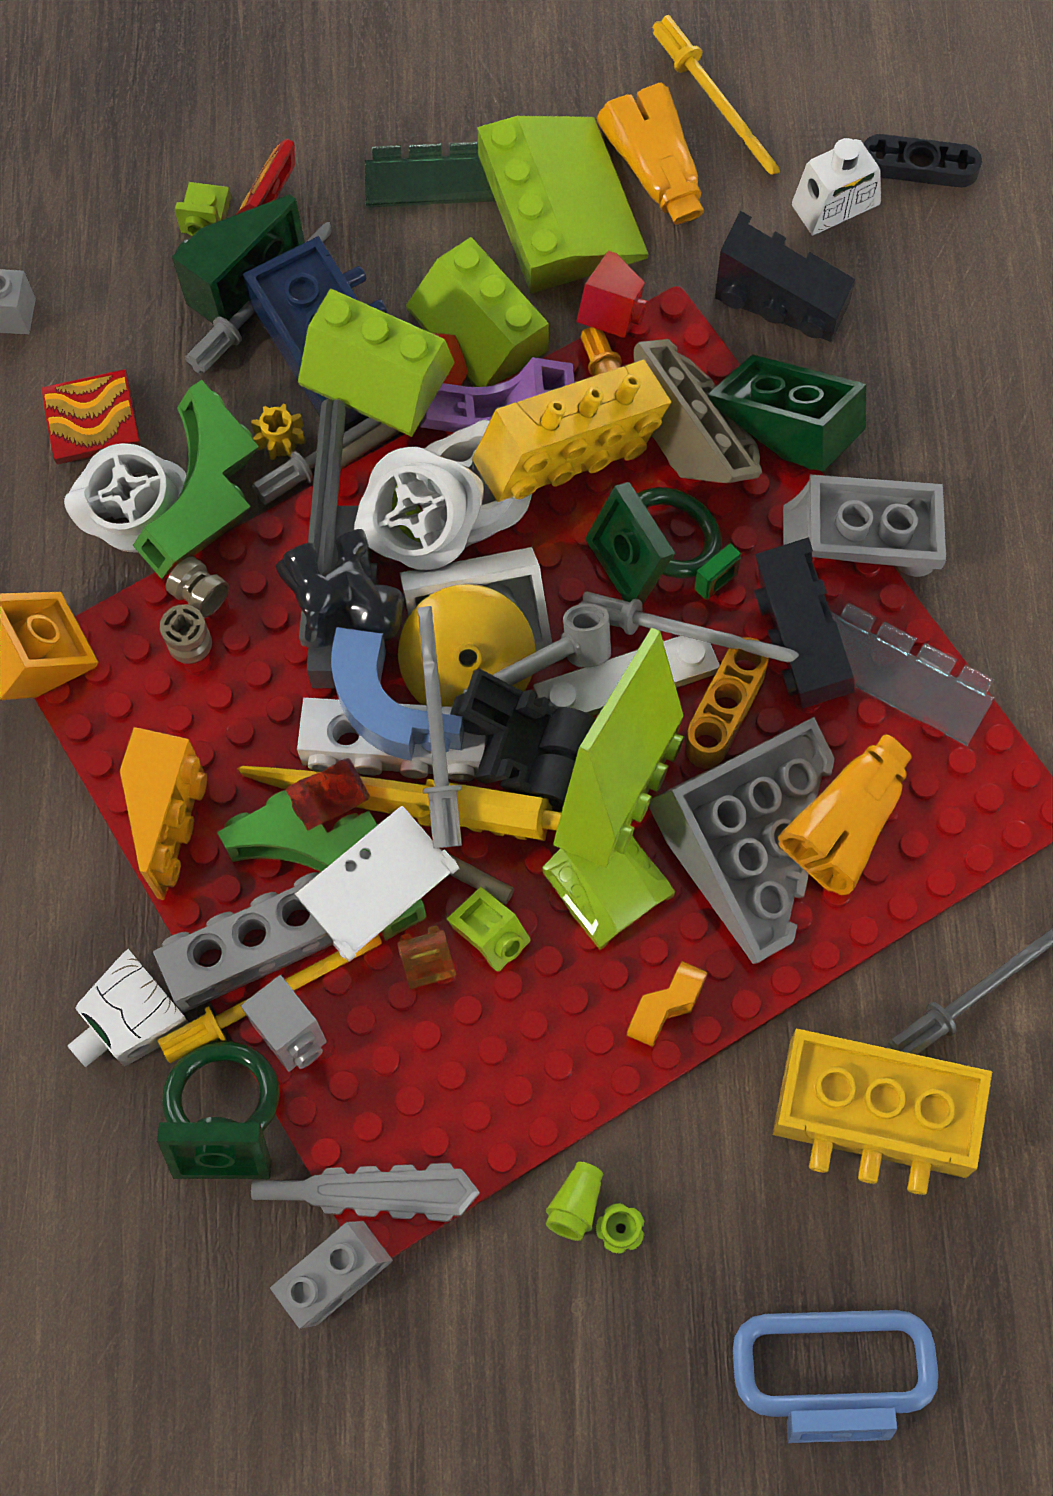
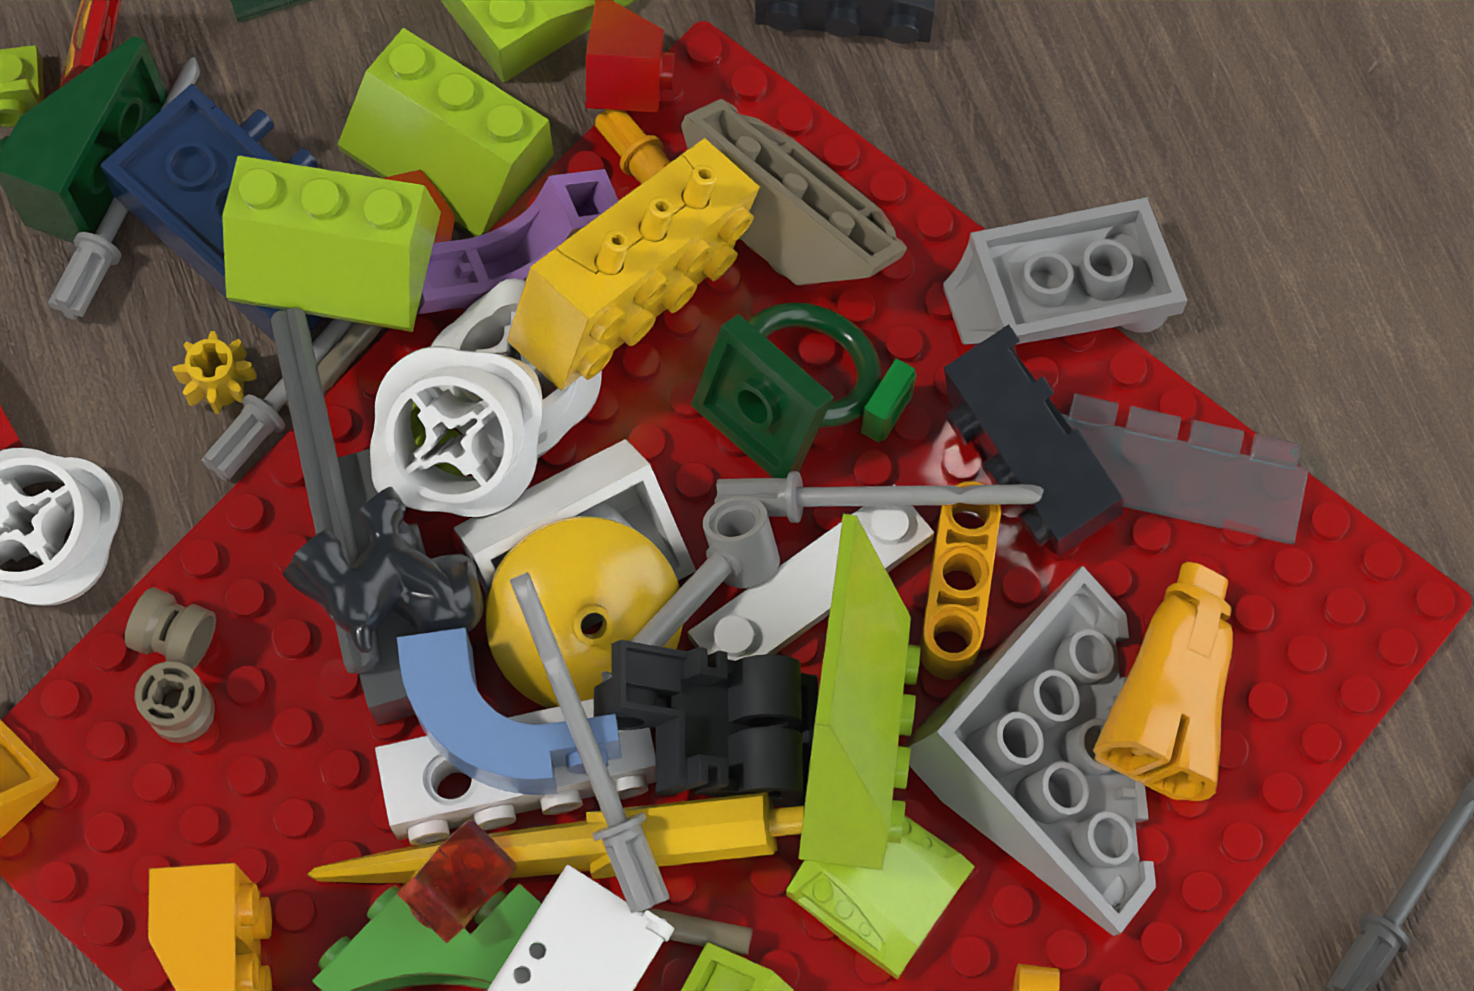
camera: 20 degrees left, 0 degrees up
(208, 500) = (144, 498): bright green arch -> none
(793, 409) = (915, 149): dark green slope -> none

